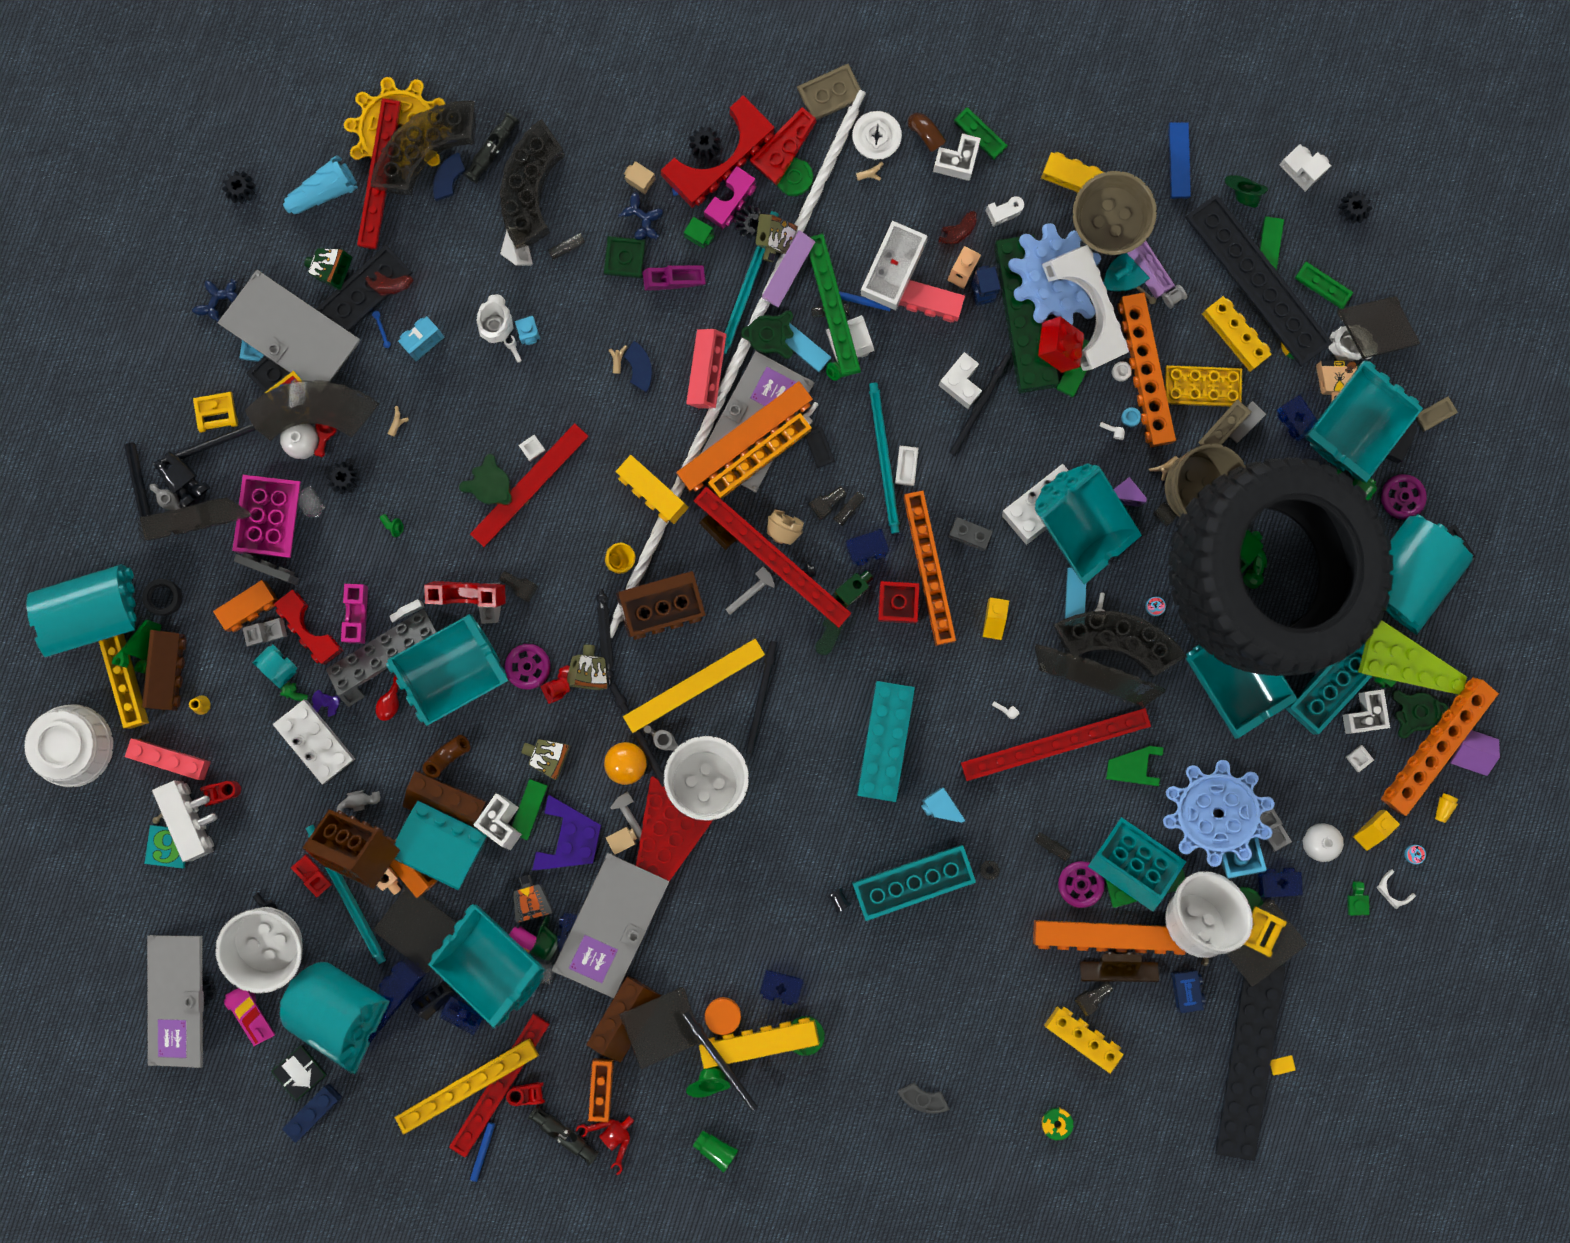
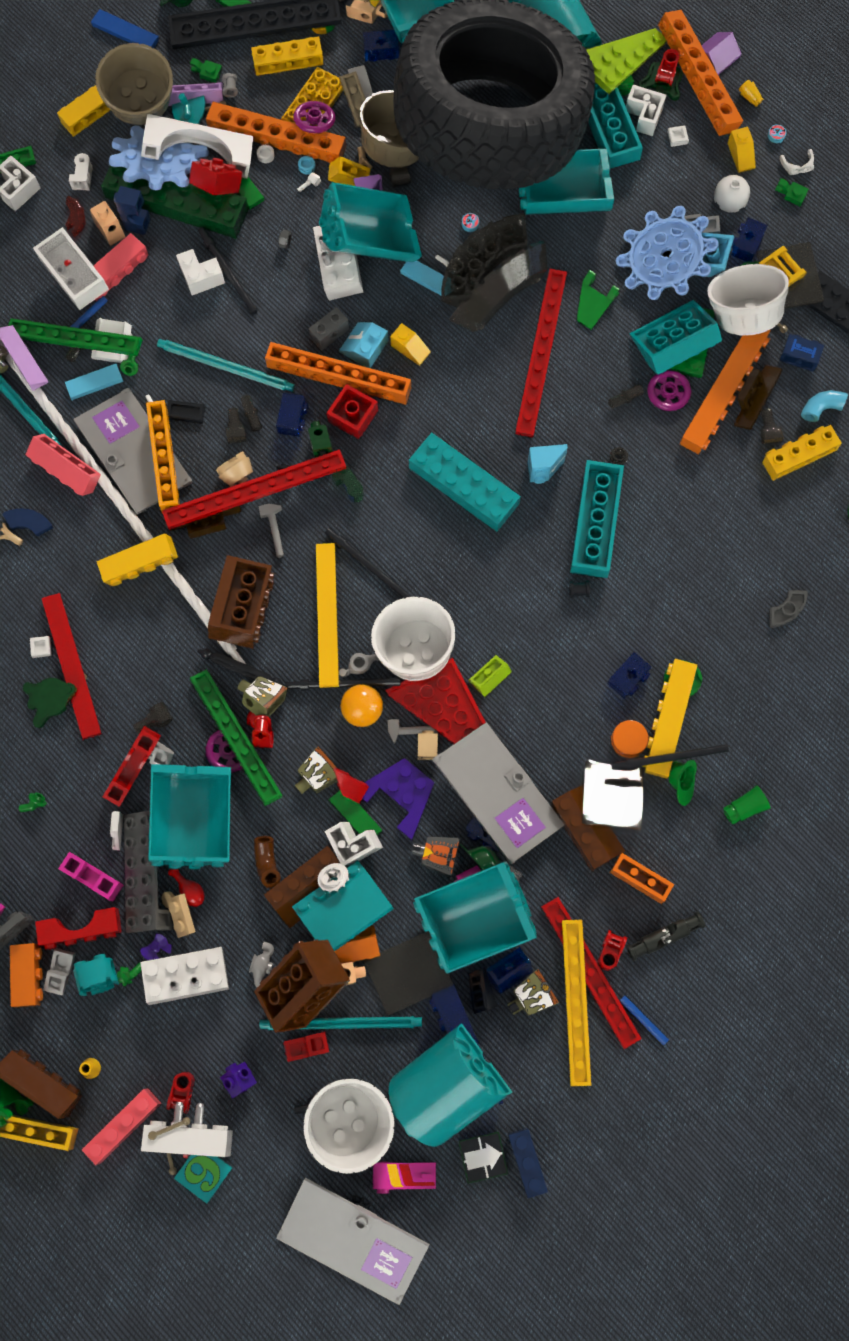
camera: 60 degrees left, 10 degrees down
(69, 745) = (54, 1218): white piece -> none
(169, 793) = (153, 1135): none -> dark tan hinge
(254, 834) = (238, 1079): none -> dark purple brick
(364, 706) = (180, 913): none -> tan hinge
(452, 1046) = (532, 995): none -> torso
(465, 821) = (333, 870): none -> white gear
(540, 667) = (236, 738): none -> green tile
(547, 793) = (349, 786): none -> red slope
(613, 1136) = (688, 892): red piece -> none
(620, 558) = (180, 619): yellow piece -> none
(717, 860) = (490, 675): none -> lime slope
(744, 436) = (139, 463): orange brick -> none
(769, 333) = (66, 399): dark green tile -> none
(906, 465) = (242, 351): white tile -> none
(974, 574) = (365, 343): none -> medium azure slope
(1012, 712) = (495, 374): white hand -> none
(1040, 441) = (284, 239): none -> dark grey tile
(1141, 463) = (345, 170): none -> yellow slope
(1147, 1035) = (822, 401): none -> medium azure cylinder
(1180, 266) = (208, 71): none -> green plate
(1194, 393) = (314, 117): none -> magenta plate
(1422, 713) = (667, 69): none -> red piece

